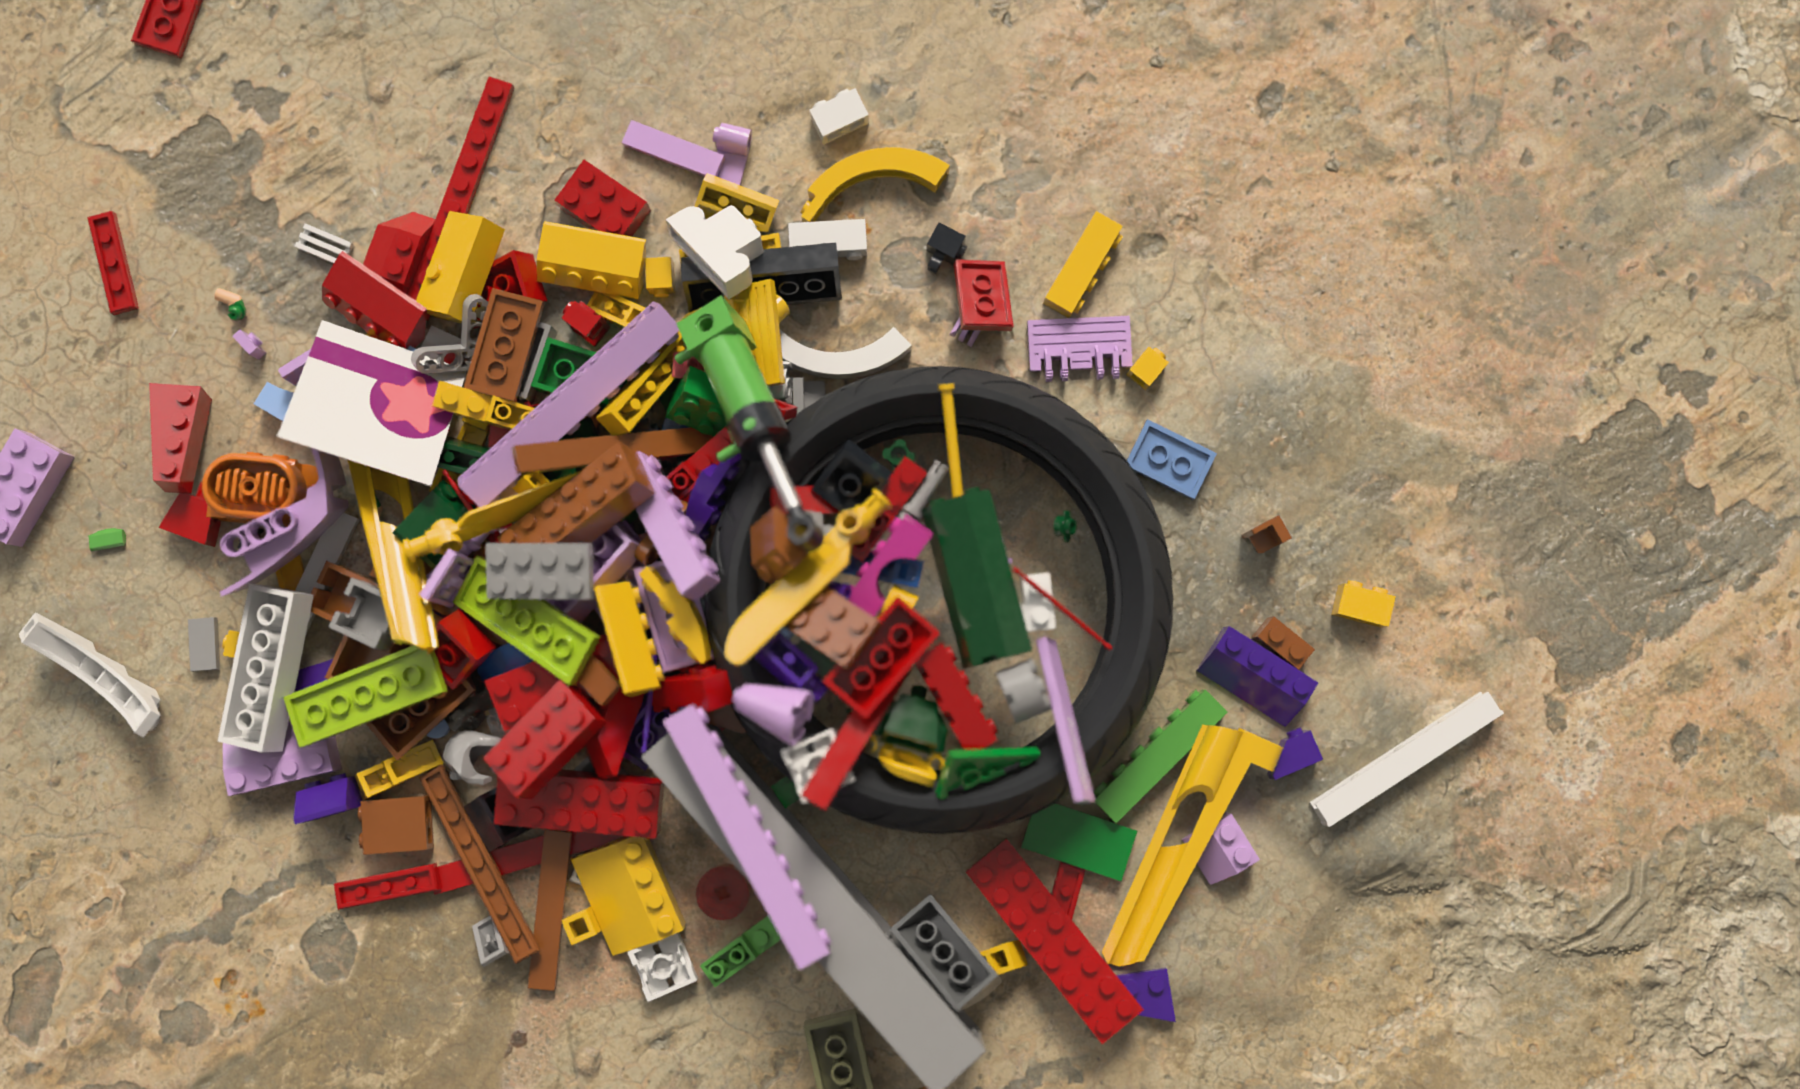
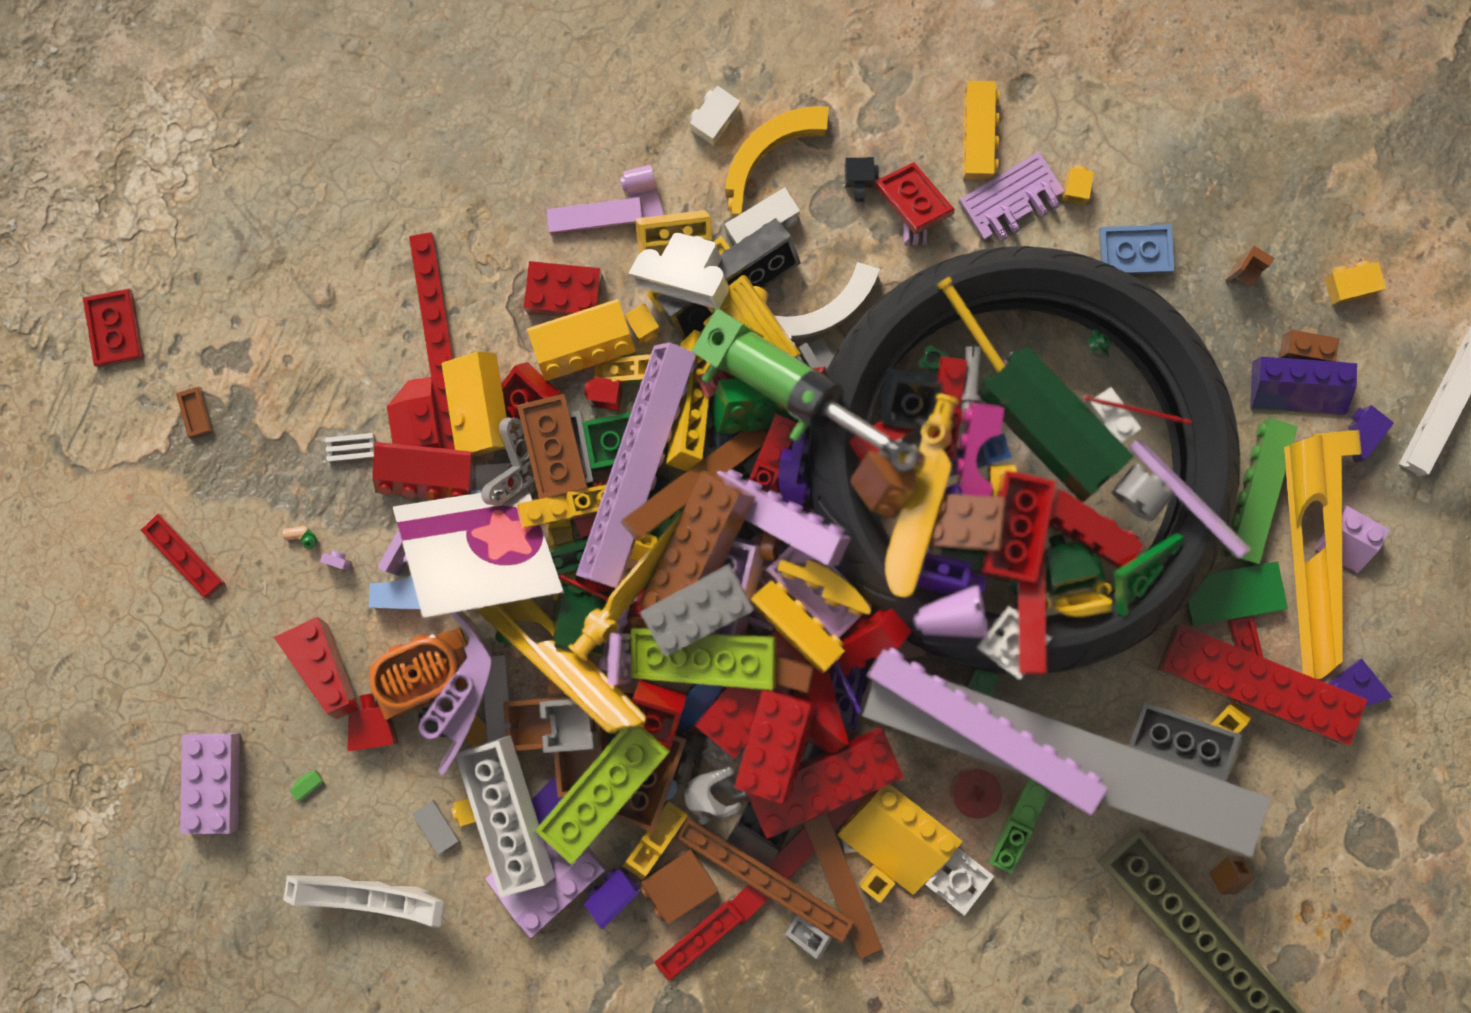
camera: 25 degrees left, 0 degrees up
(199, 135) = (194, 412): none -> dark orange tile

